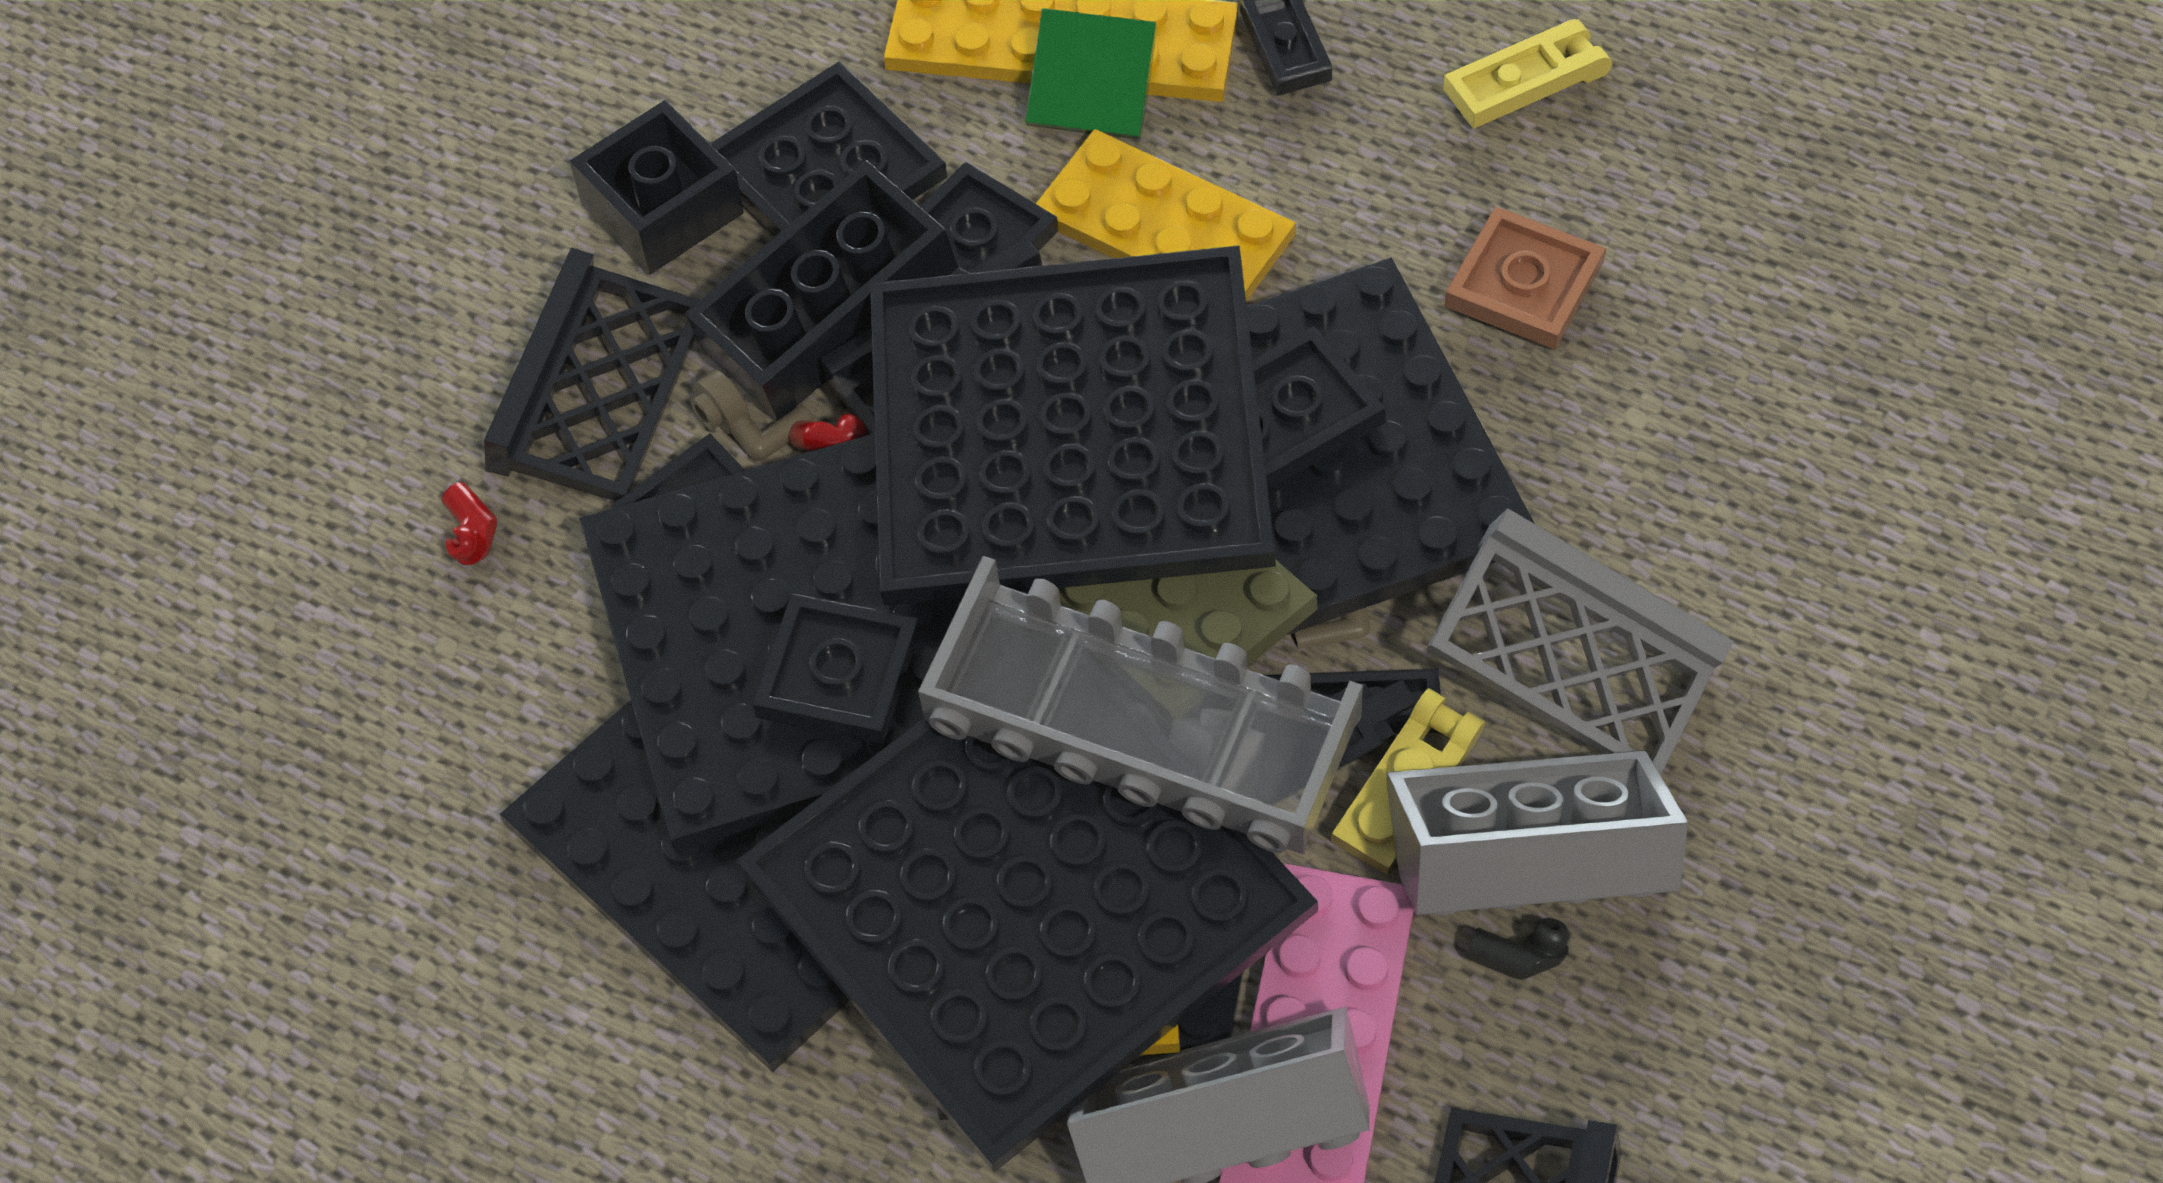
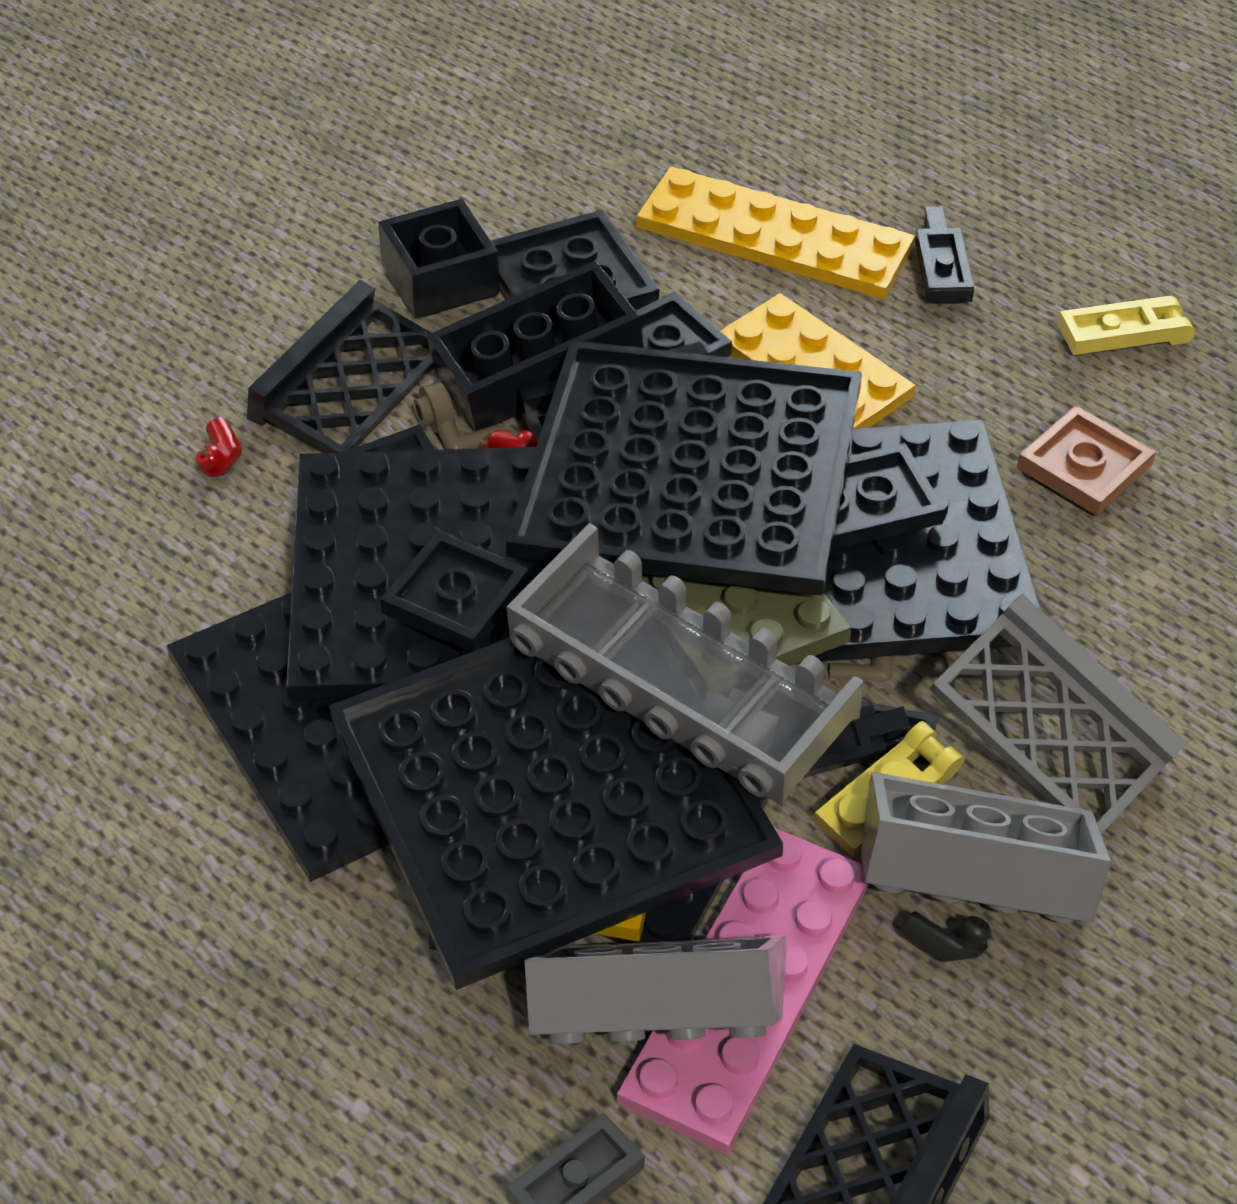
camera: 10 degrees right, 10 degrees down
(1091, 73) = (788, 254): green tile -> none

